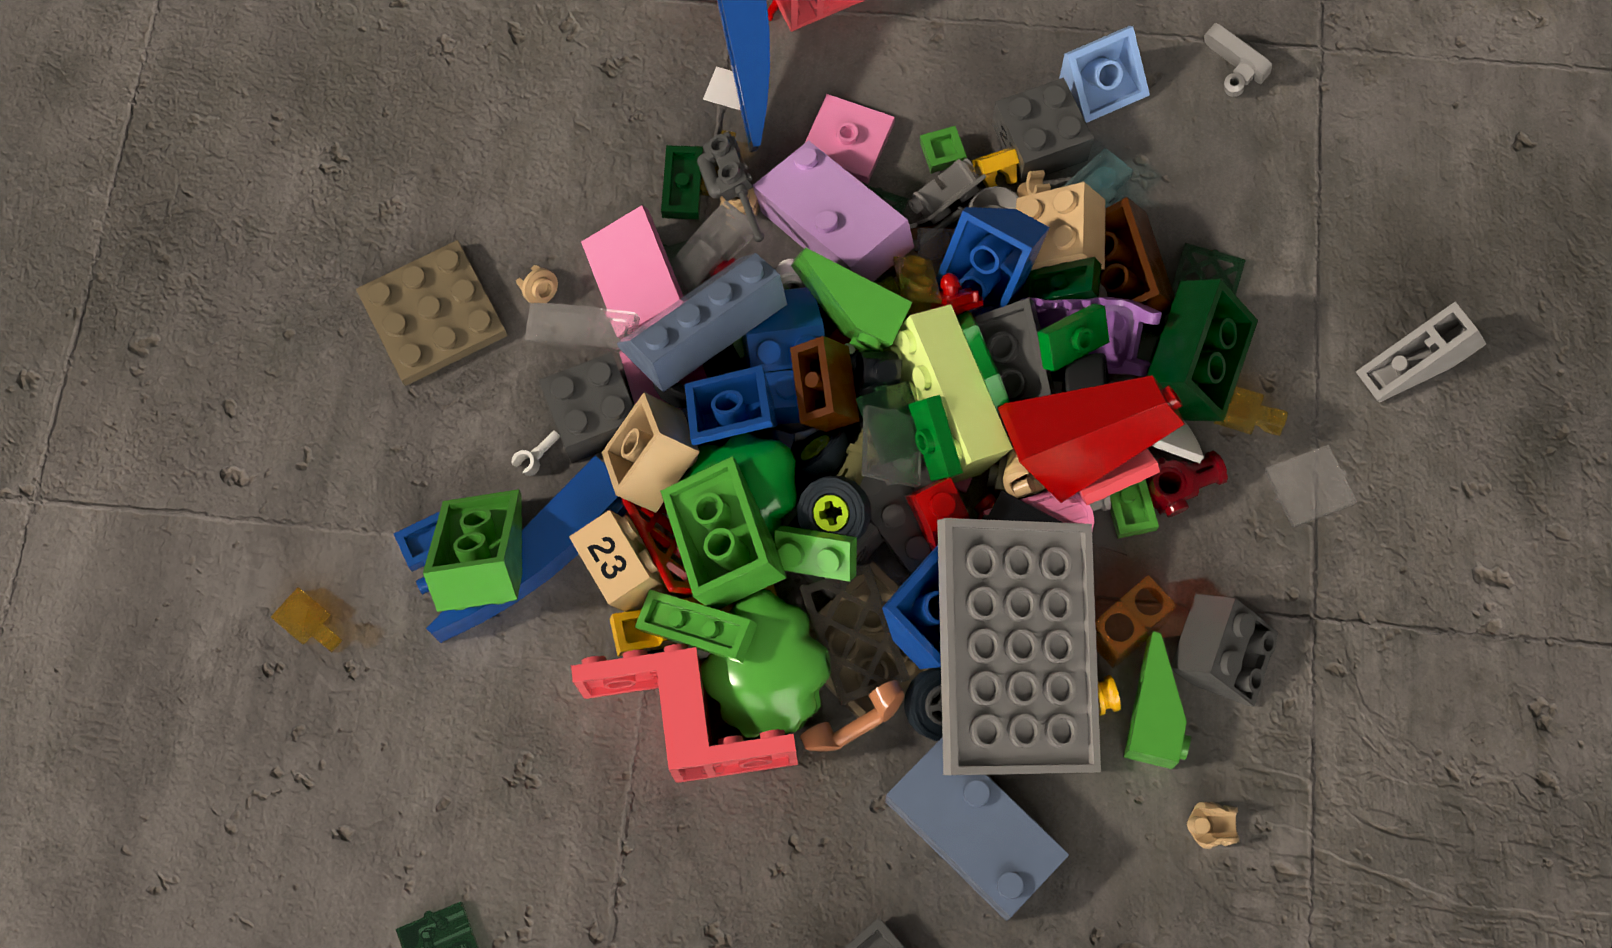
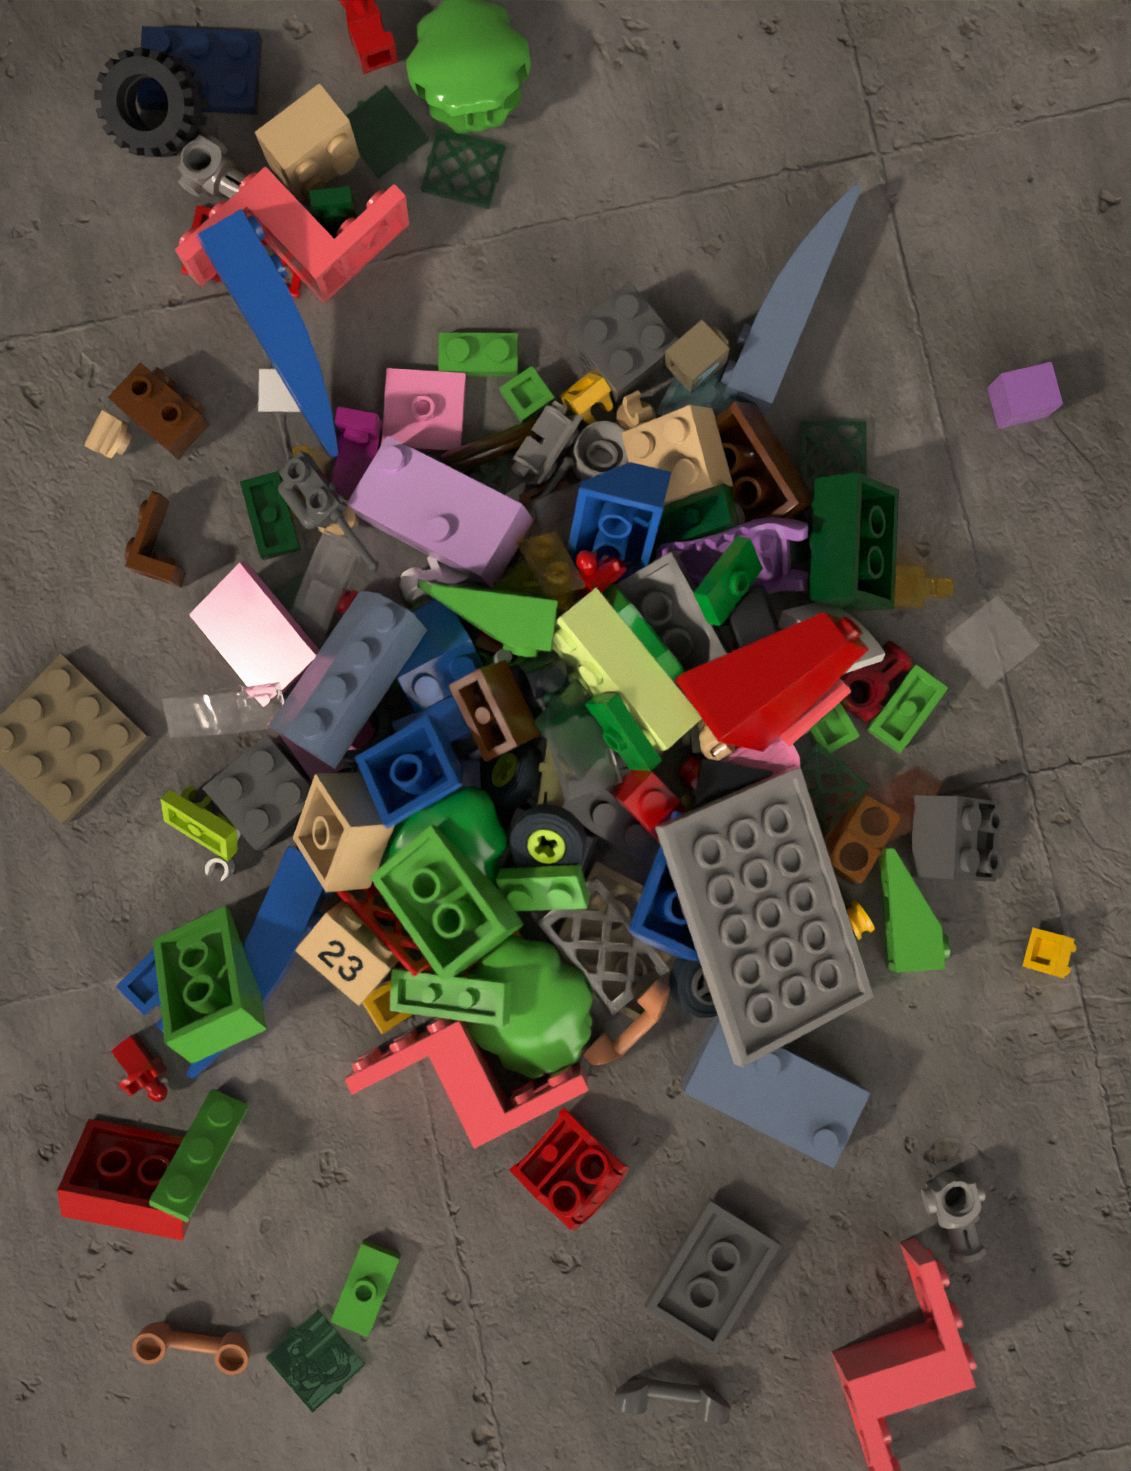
camera: 25 degrees left, 15 degrees up
(300, 873) = (153, 1340): none -> nougat bar
(305, 618) = (61, 1096): clear yellow plate -> none
(339, 714) = (116, 1176): none -> red slope
(386, 617) = (141, 1069): none -> red piece
(409, 705) = (199, 1155): none -> bright green plate
(515, 894) = (365, 1288): none -> bright green plate
(523, 415) = (199, 823): none -> lime plate
(538, 285) = (163, 678): tan plate -> none
(559, 176) = (140, 548): none -> reddish brown bracket
(568, 78) = (108, 435): none -> tan plate
(619, 71) = (159, 410): none -> reddish brown brick
(753, 844) = (570, 1171): none -> red slope
(785, 135) = (356, 447): none -> magenta bracket
(897, 181) = (490, 447): none -> dark brown axle
(912, 106) = (479, 354): none -> bright green plate
(1105, 74) = (669, 260): light blue slope -> none
(1105, 154) = (697, 355): none -> dark tan brick
(1131, 546) = (840, 767): none -> clear green window
(1199, 143) = (781, 319): none -> sand blue slope
(1211, 517) = (907, 708): none -> bright green plate
(1213, 824) = (990, 1010): tan arm -> none
(1247, 61) = (812, 198): light grey piece -> none
(1288, 787) = (1049, 953): none -> yellow tile
(1400, 276) = (1025, 395): none -> medium lavender piece
(1422, 353) = (1065, 474): light grey slope -> none

